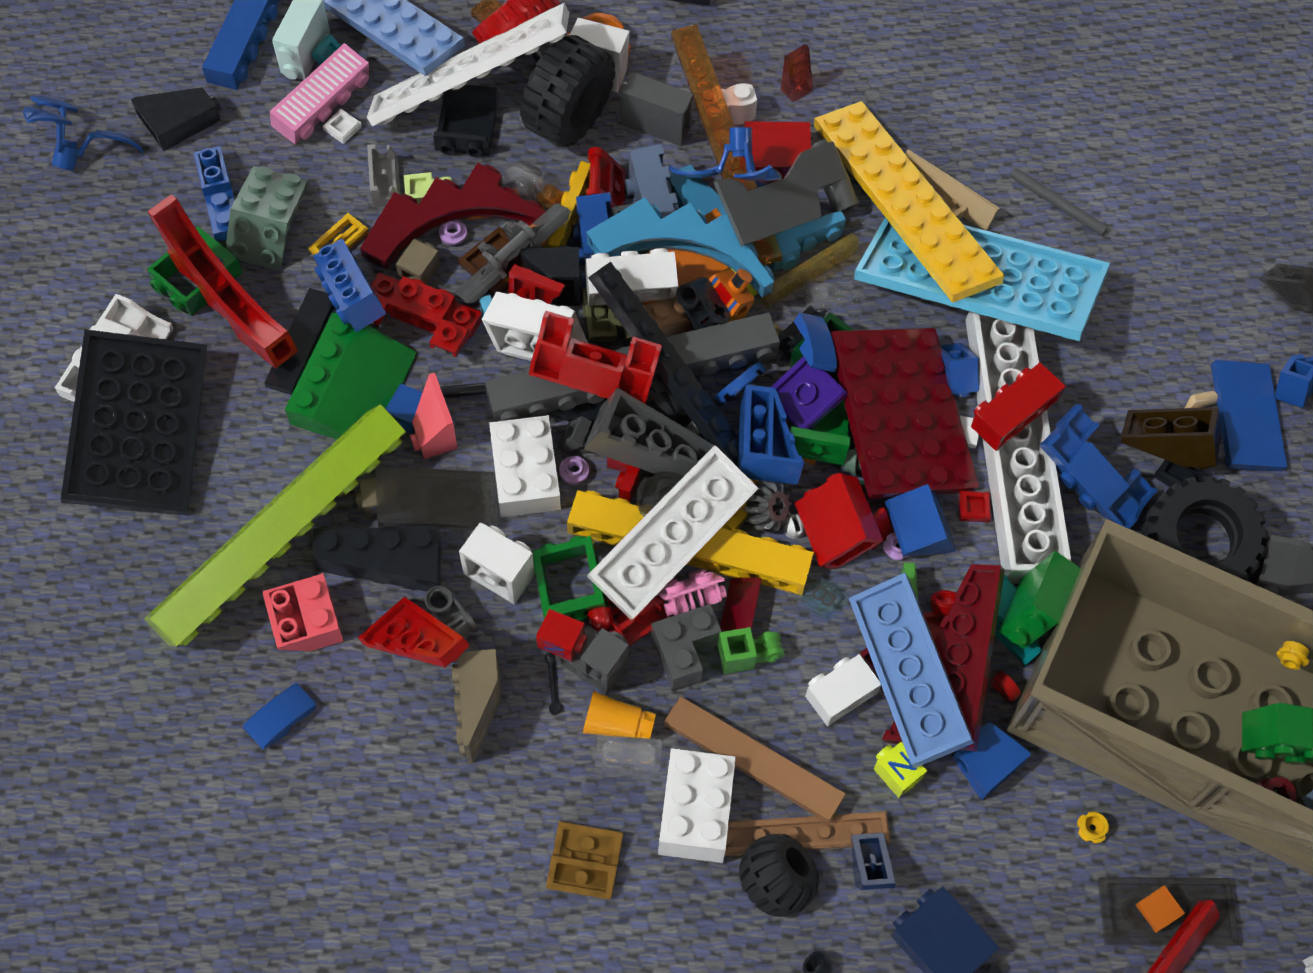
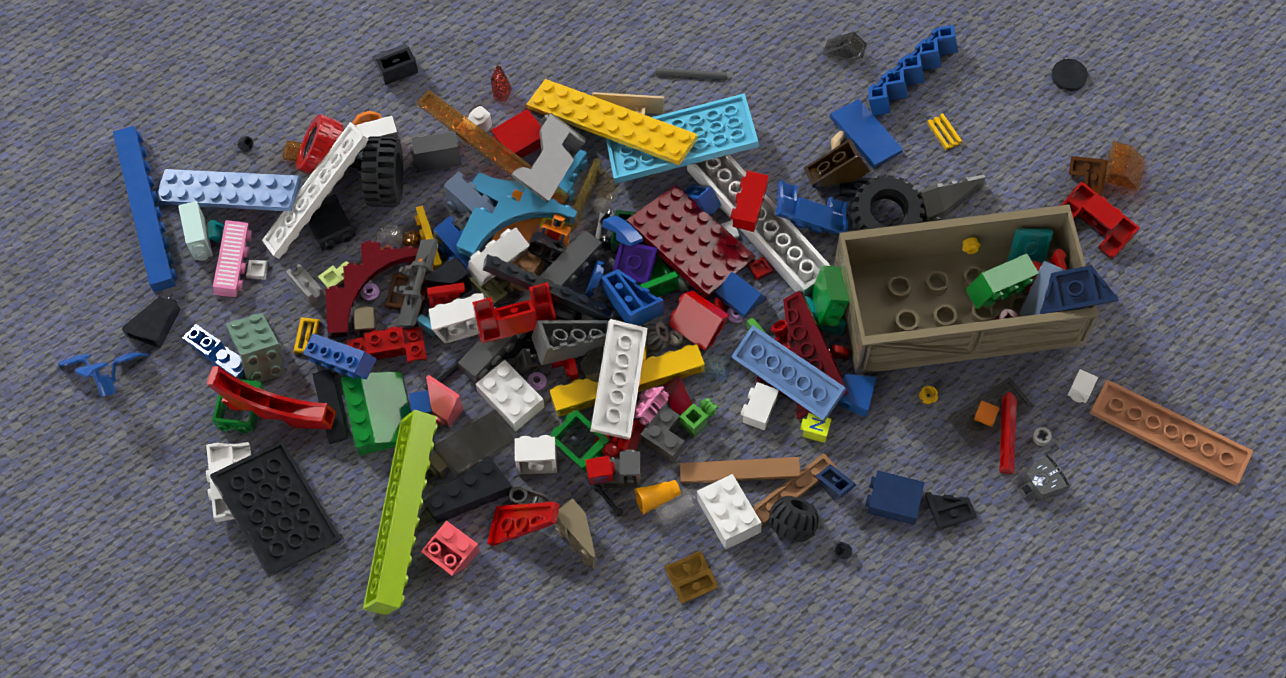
camera: 30 degrees left, 0 degrees up
(278, 715) = (476, 610): blue slope -> none
(608, 173) = (436, 208): red plate -> none
(741, 146) = (505, 145): blue plant -> none

